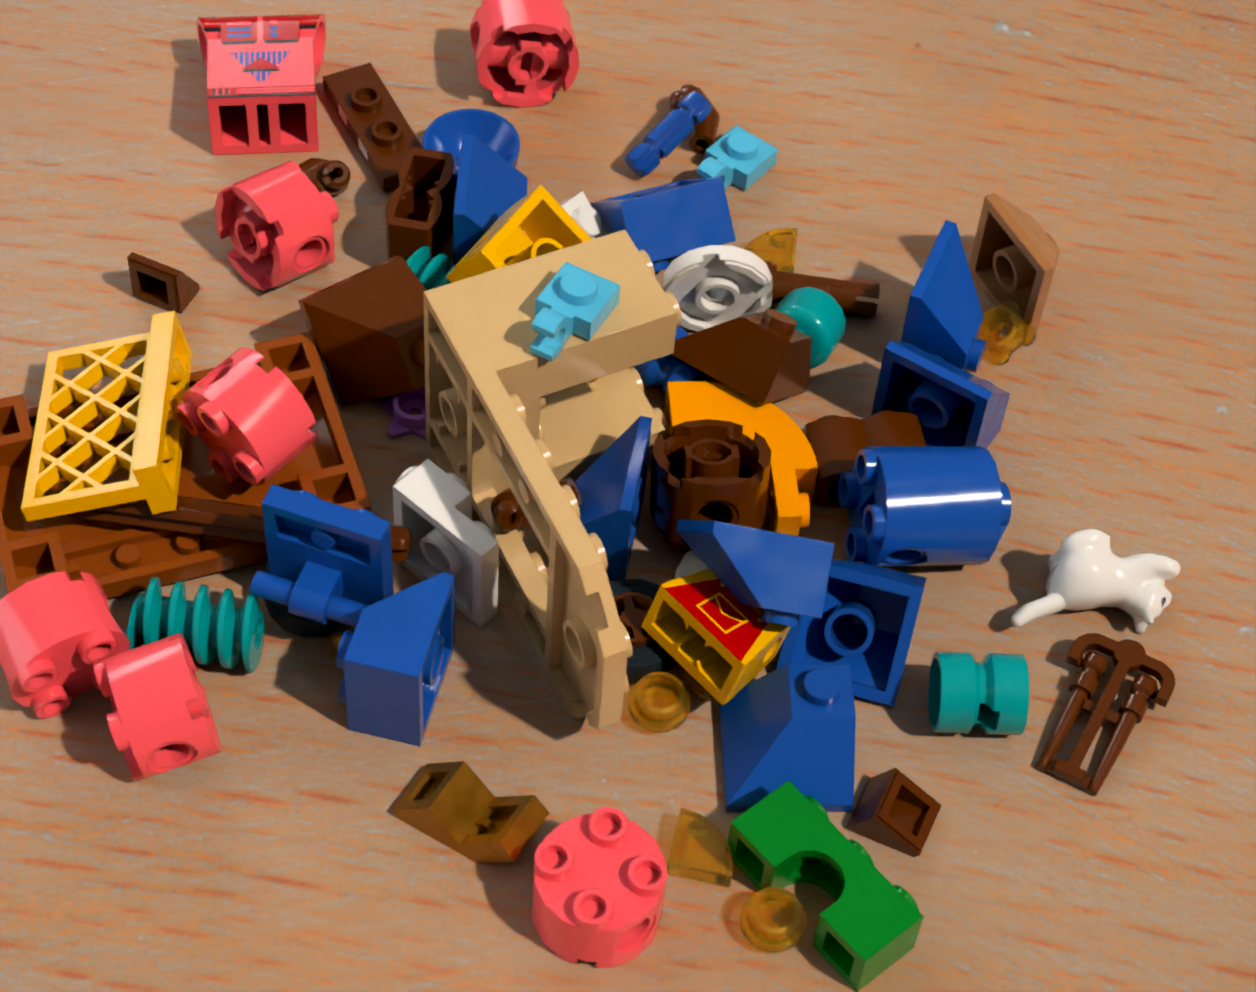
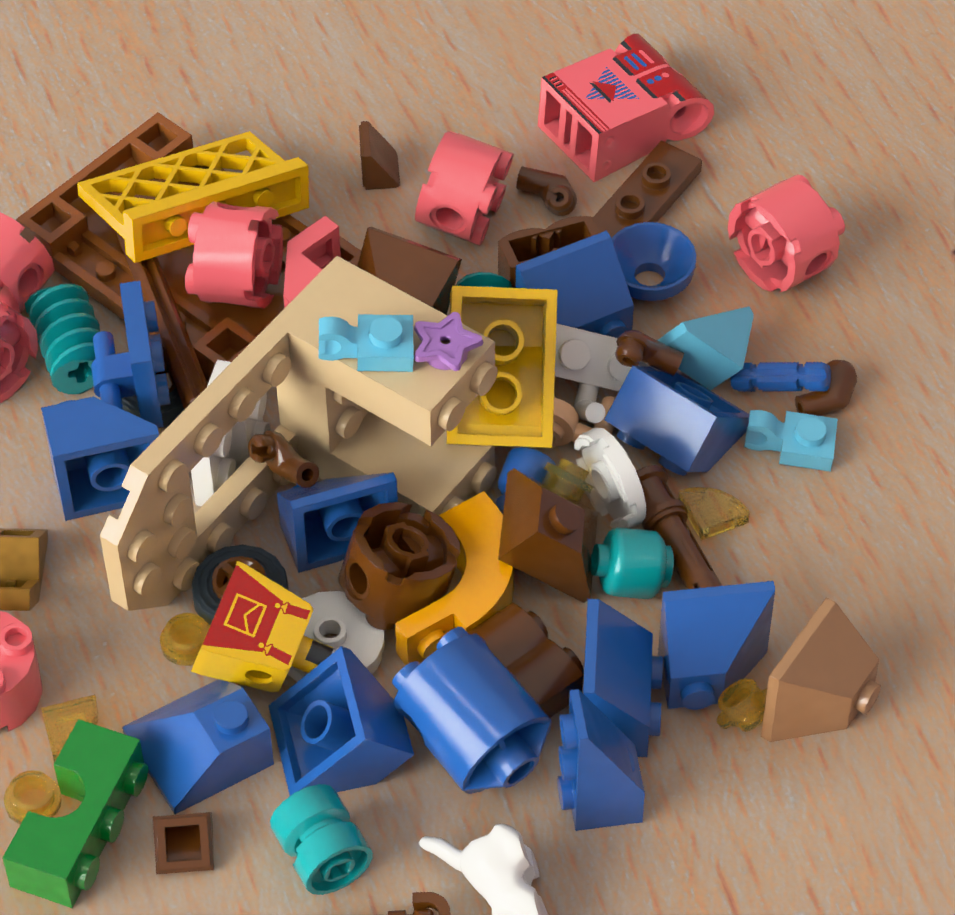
camera: 65 degrees right, 0 degrees up
(325, 382) = (309, 255): none -> coral slope
(601, 189) = (639, 347): none -> reddish brown arm
(604, 156) = (712, 345): none -> medium azure slope
(620, 244) = (442, 355): none -> medium lavender plate
(696, 317) = (567, 479): none -> clear yellow plate
(764, 567) = (295, 609): blue slope -> none
(1040, 446) = (597, 769): none -> blue slope

